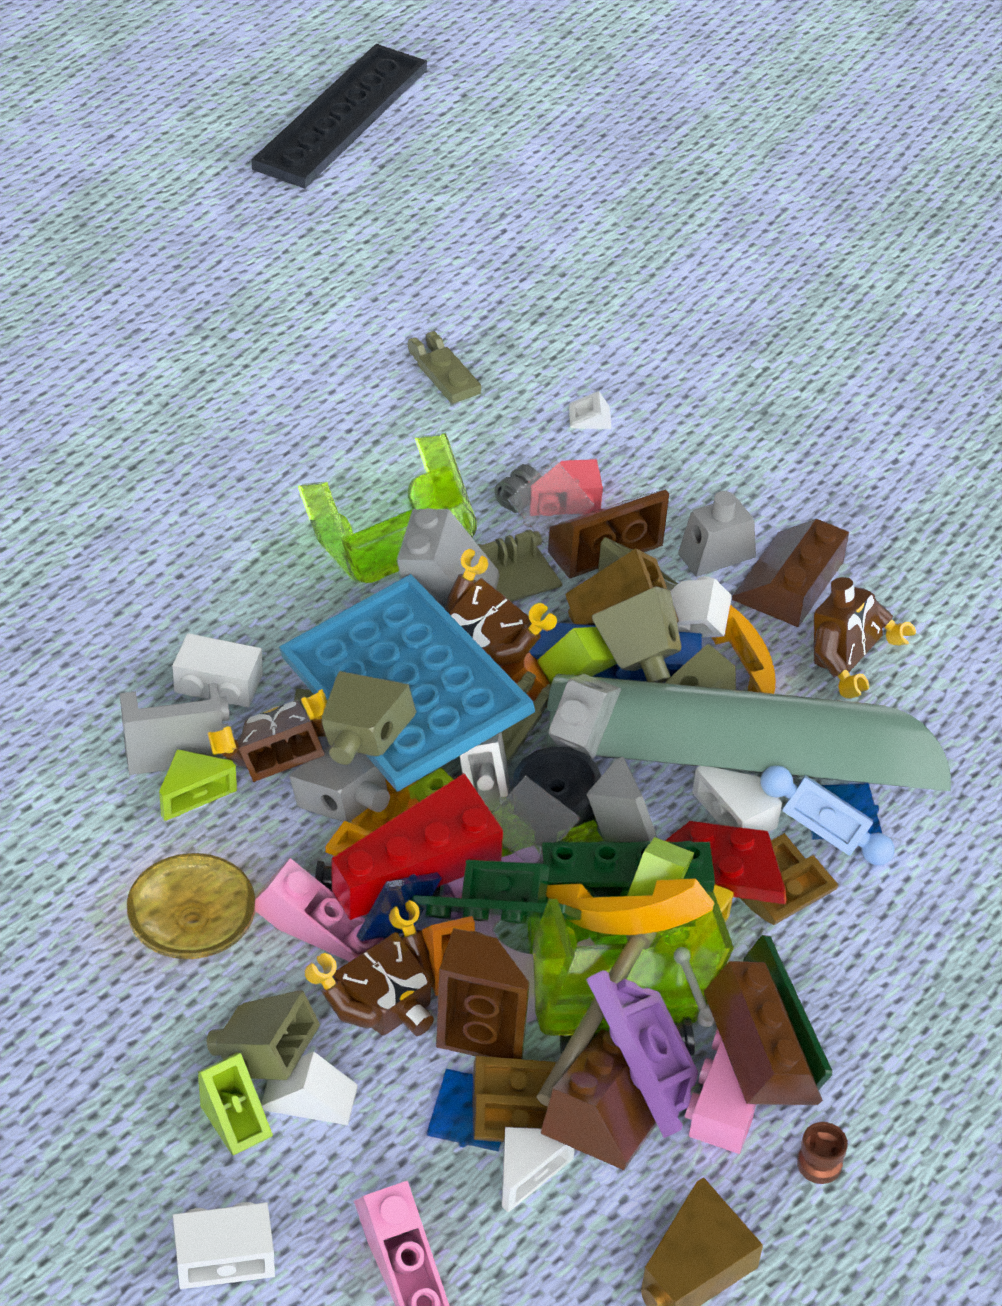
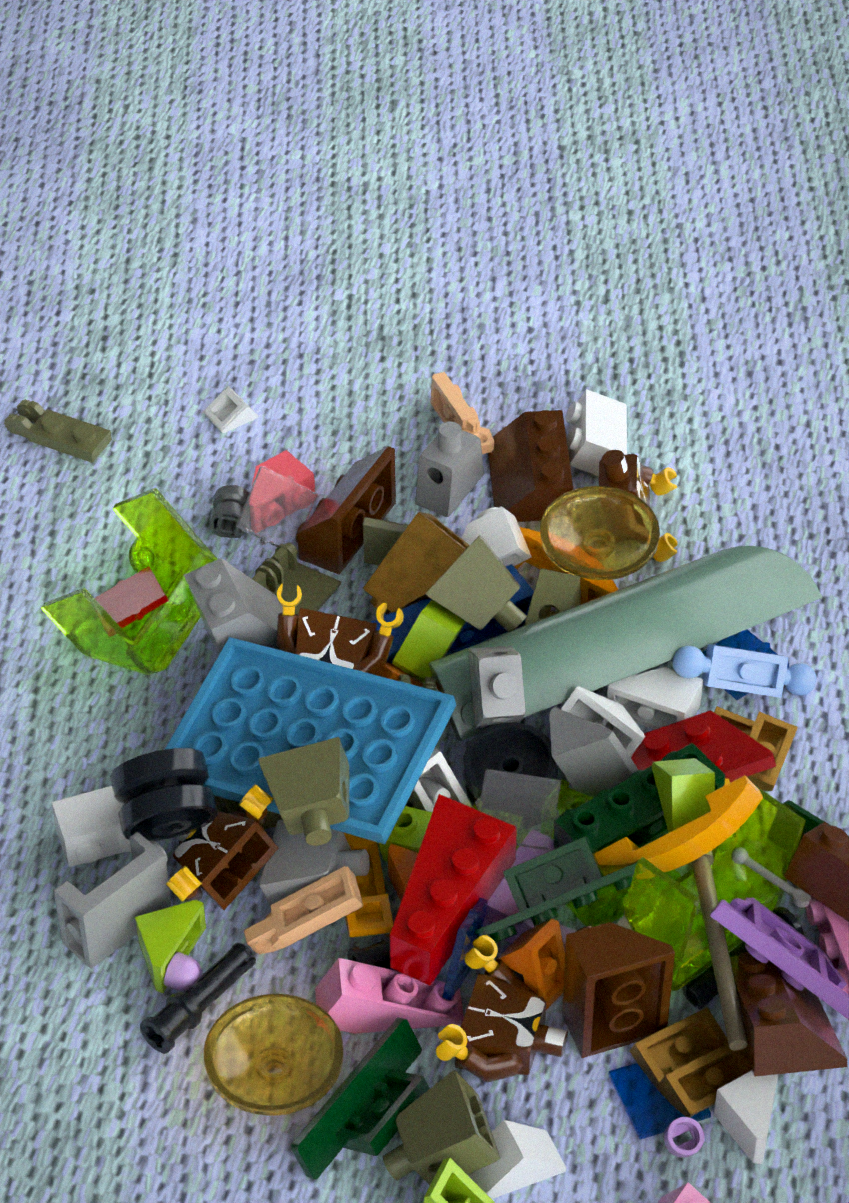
camera: 30 degrees left, 0 degrees up
(163, 839) = (185, 1008): none -> black pin
(185, 811) = (182, 972): none -> lavender hinge
(230, 980) = (366, 1104): none -> dark green bracket
(256, 664) = (164, 794): none -> black wheel
(307, 814) = (306, 912): none -> light nougat hinge
(382, 517) = (133, 597): none -> piece
(457, 1142) = (680, 1127): none -> lavender hinge
(667, 794) = (606, 714): none -> white slope
(769, 504) = (451, 406): none -> light nougat hinge
(786, 640) = (599, 532): none -> clear yellow dish
(874, 561) = (595, 428): none -> white brick

